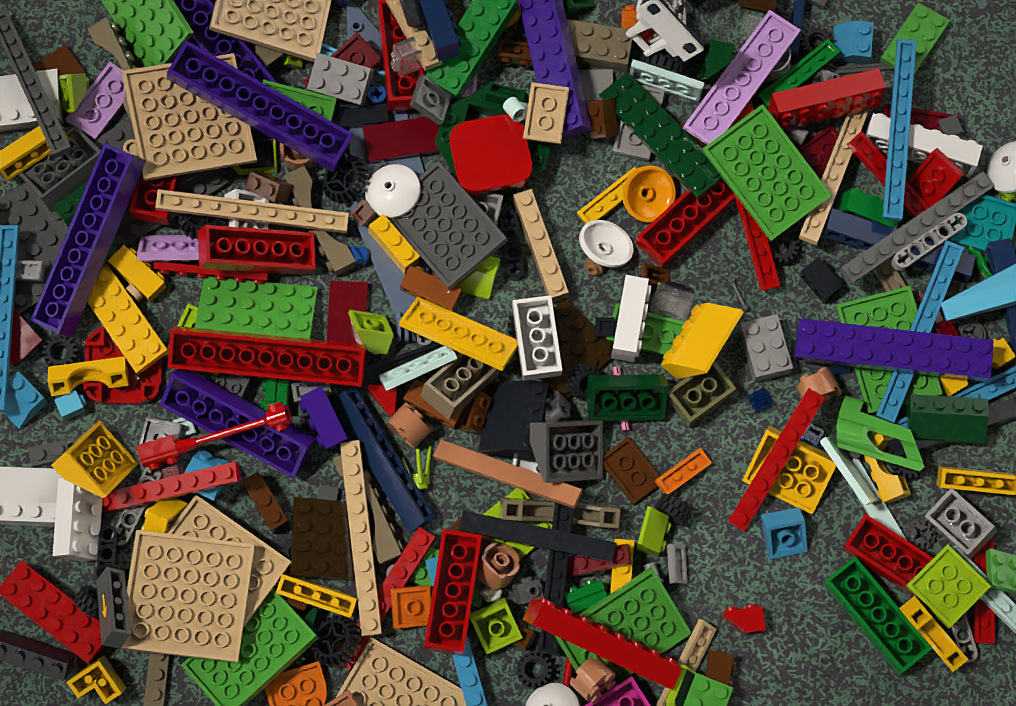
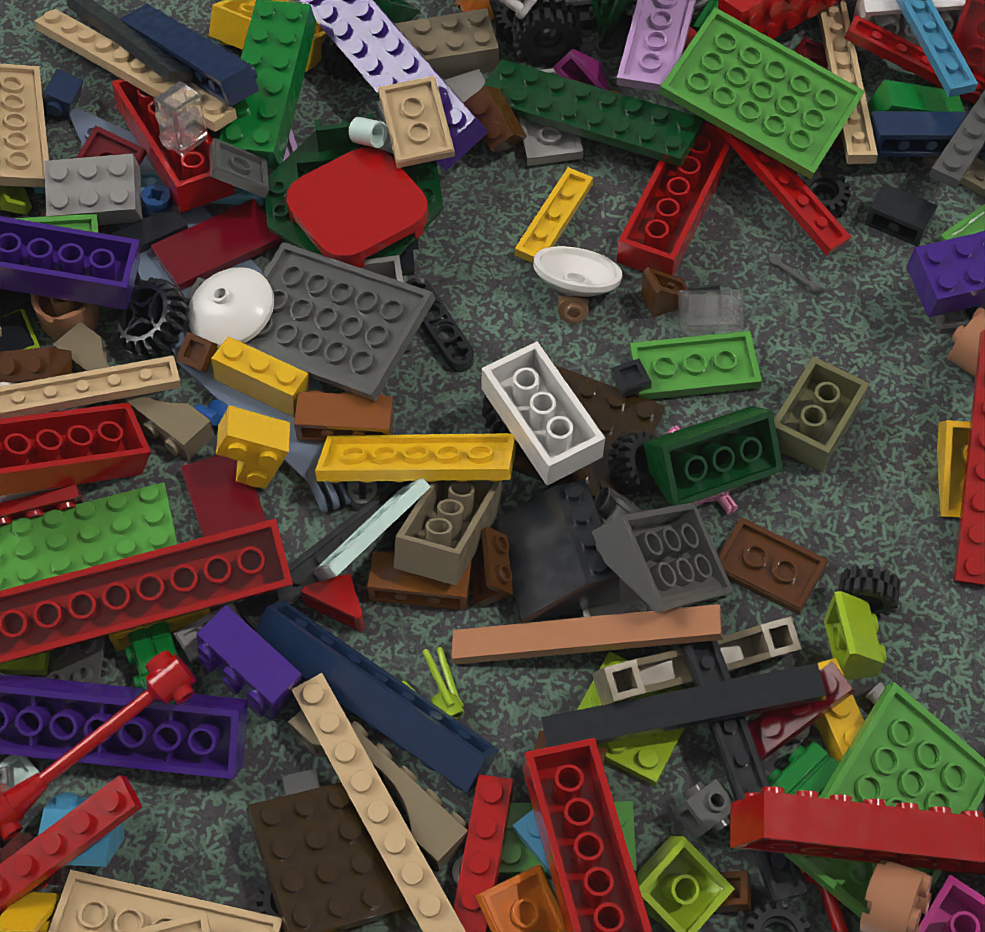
camera: 20 degrees left, 15 degrees down
(265, 502) = (200, 840): reddish brown brick -> none
(372, 290) = (255, 442): none -> yellow brick
(372, 330) = (290, 507): lime slope -> none
(409, 425) = (395, 623): nougat brick -> none
(482, 279) = (414, 380): lime slope -> none
(491, 595) = (645, 835): white plate -> none
(497, 566) = (640, 784): nougat brick -> none
(514, 53) = (337, 92): reddish brown bracket -> none
(540, 246) = (476, 300): tan brick -> none
(631, 313) = (666, 345): white brick -> none
(658, 195) = (612, 179): light orange dish -> none
(666, 80) = (547, 46): light aqua tile -> none
(674, 103) = (582, 69): none -> magenta slope
(677, 564) = (916, 673): light grey plate -> none
(683, 471) = (851, 533): orange plate -> none
(700, 340) = (785, 336): yellow slope -> none
(759, 400) = (904, 398): clear blue plate -> none
(765, 348) = (875, 324): light grey brick -> none

